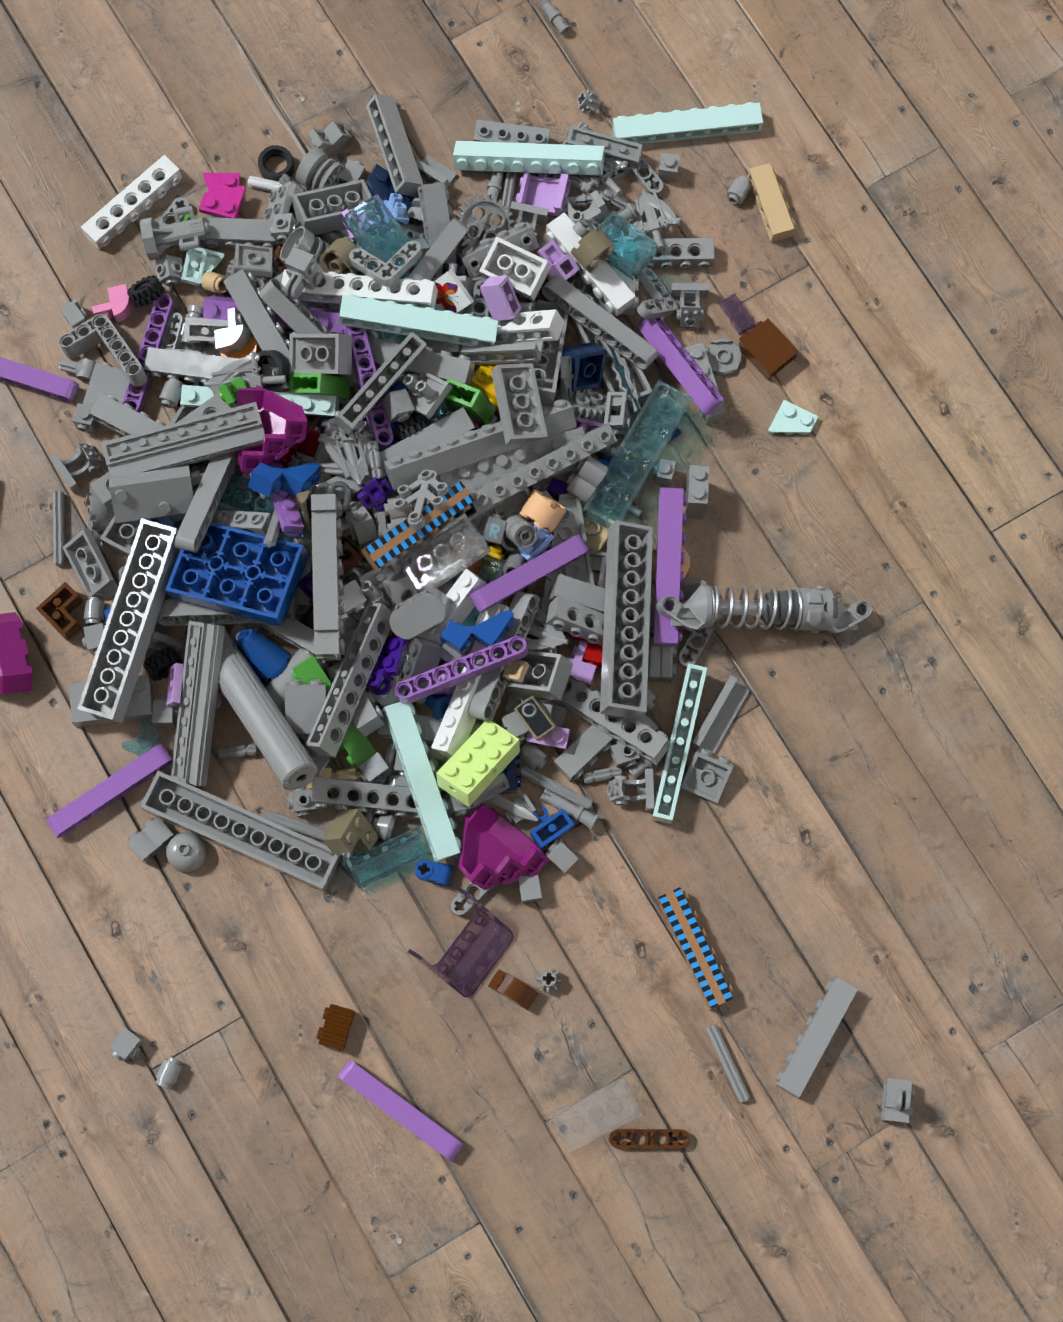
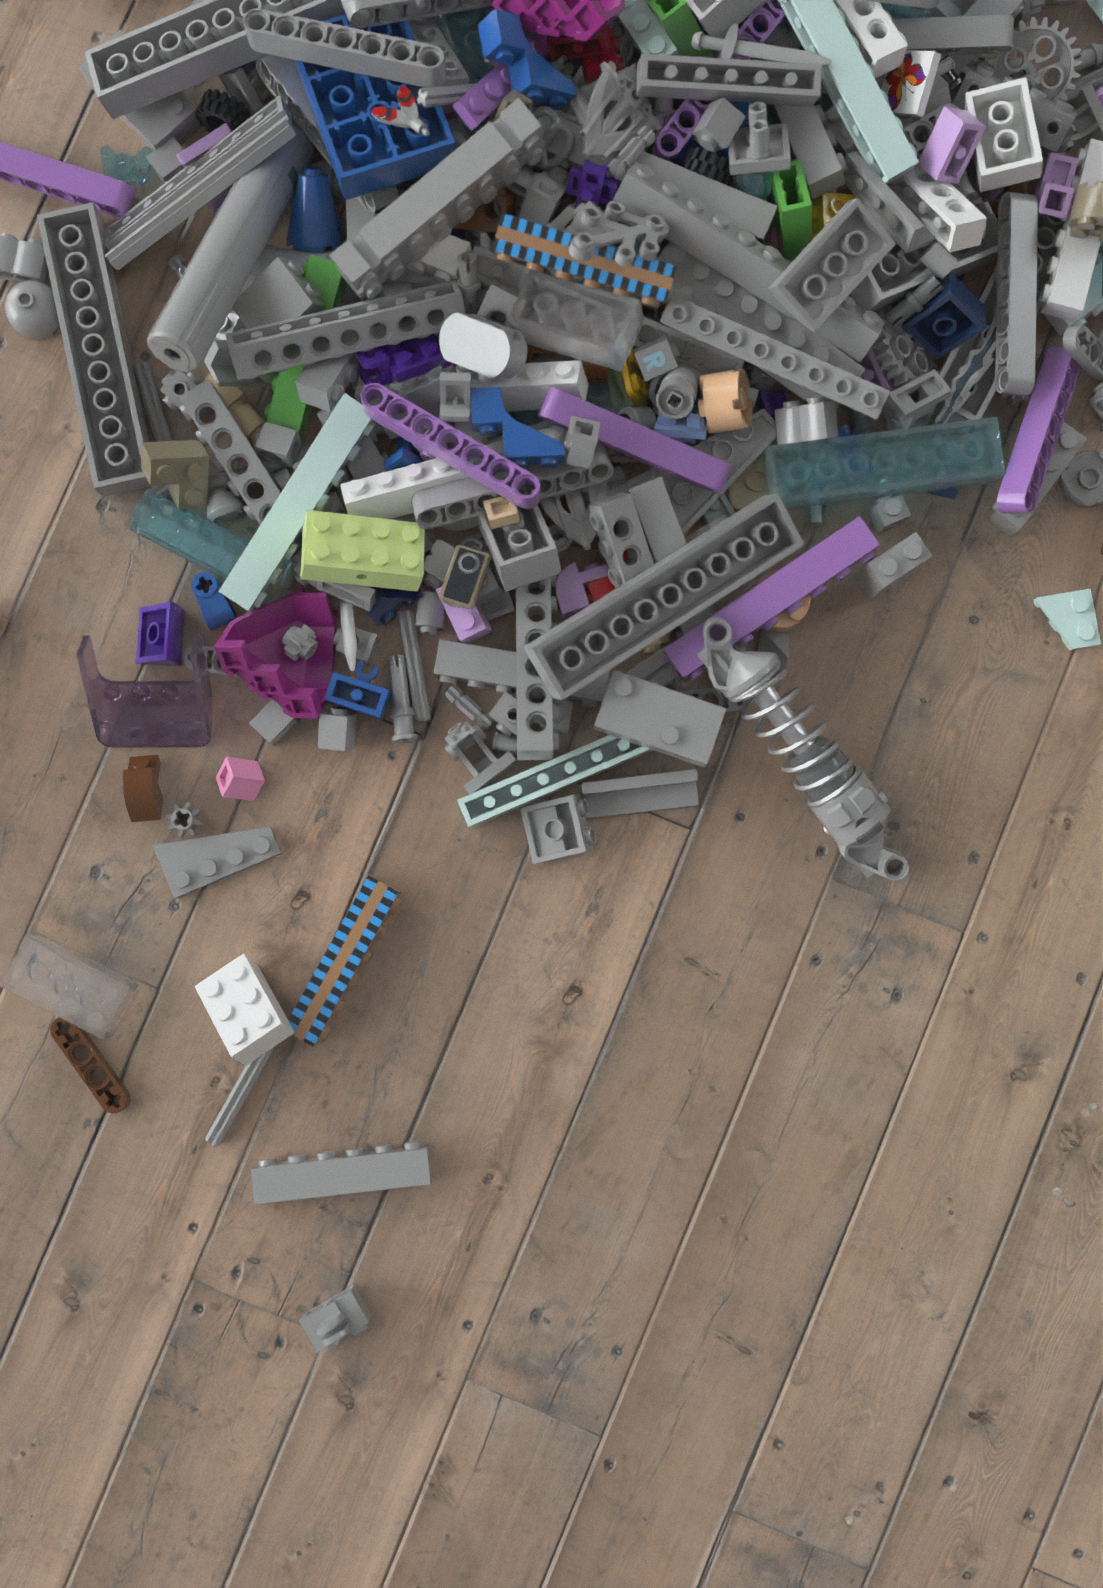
camera: 55 degrees right, 10 degrees up
(200, 574) = (345, 48): none -> light grey beam
(268, 560) = (405, 118): none -> piece
(362, 367) = (732, 46): none -> light grey sword
(430, 917) = (160, 634): none -> dark purple slope
(438, 647) = (455, 397): none -> light grey bracket
(497, 839) = (300, 642): none -> light grey gear
(513, 599) = (581, 441): none -> light grey brick
(548, 931) = (240, 778): none -> bright pink panel
(555, 348) = (938, 259): none -> light grey brick
(580, 984) = (208, 859): none -> light grey wing
(684, 1021) = (244, 1009): none -> white brick
(690, 672) = (659, 718): none -> light grey brick

